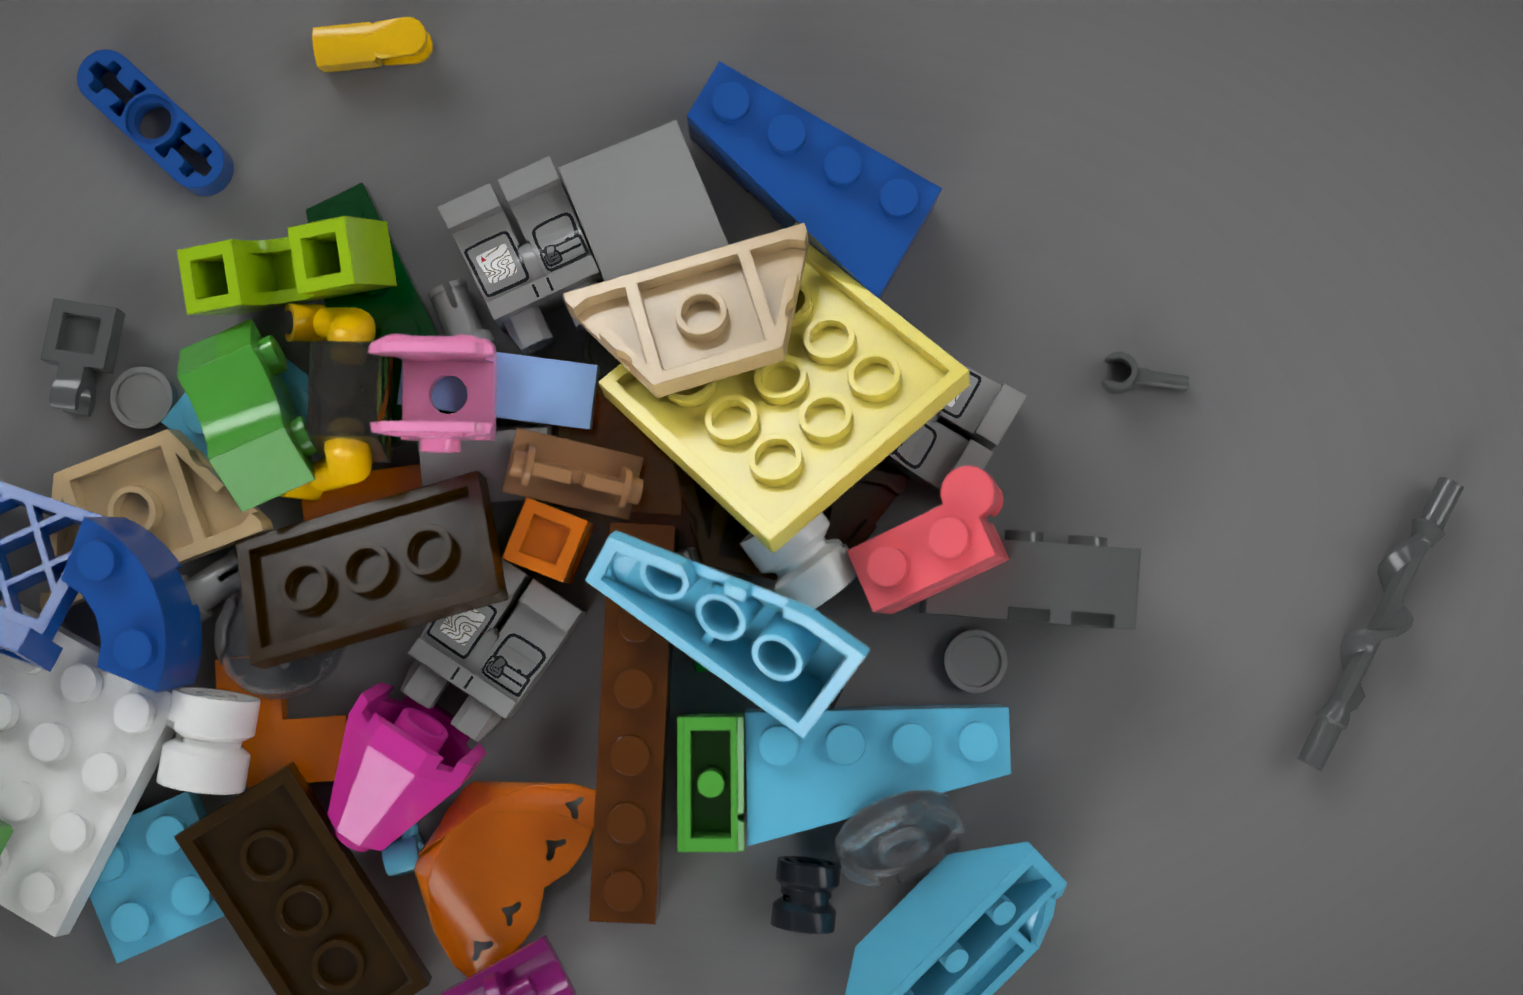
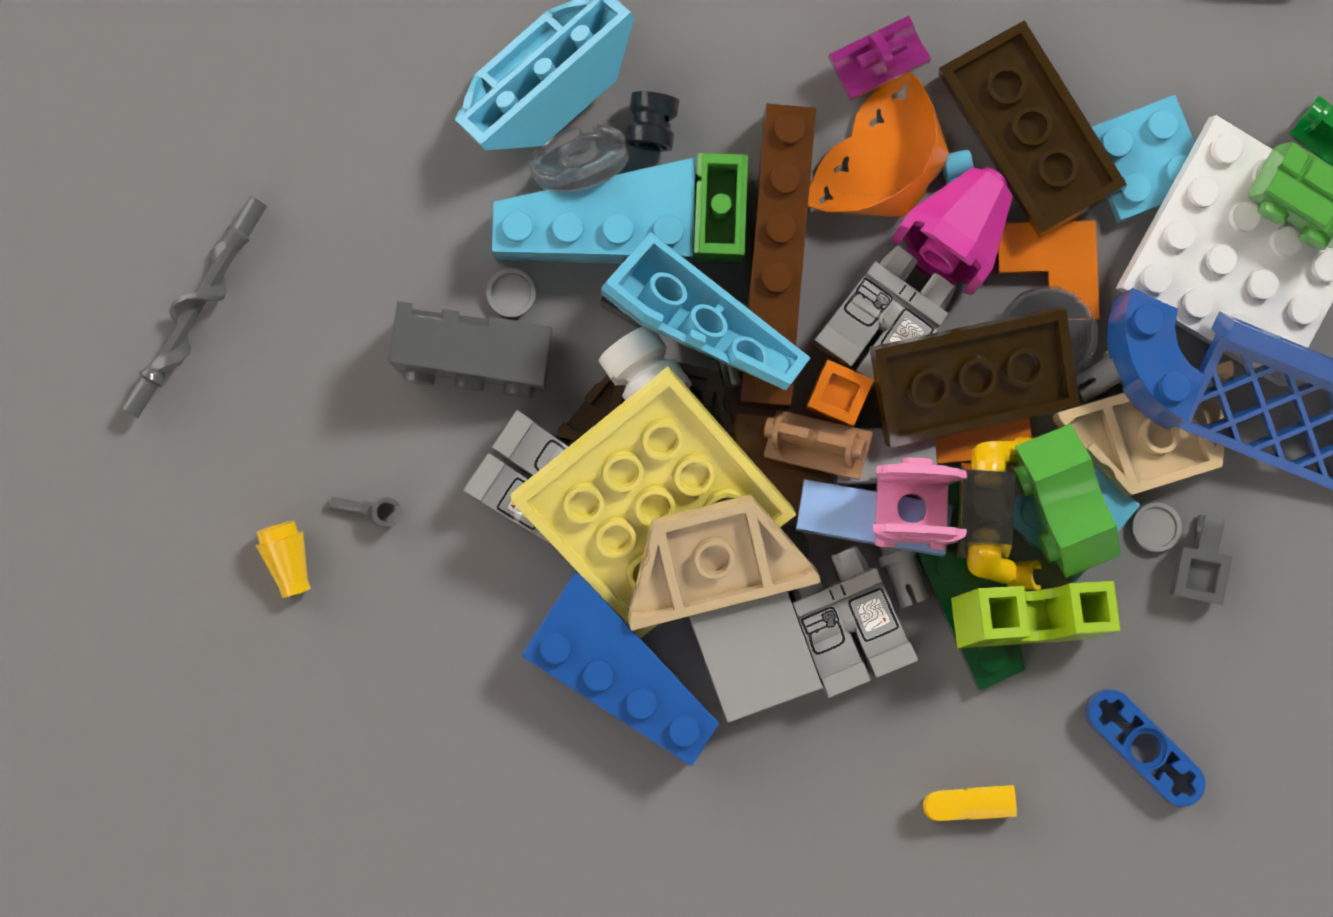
camera: 175 degrees right, 0 degrees up
(208, 741) = (1100, 253): white wheel -> none
(934, 547) = (541, 371): coral hinge -> none
(1241, 311) = (285, 557): none -> yellow cone

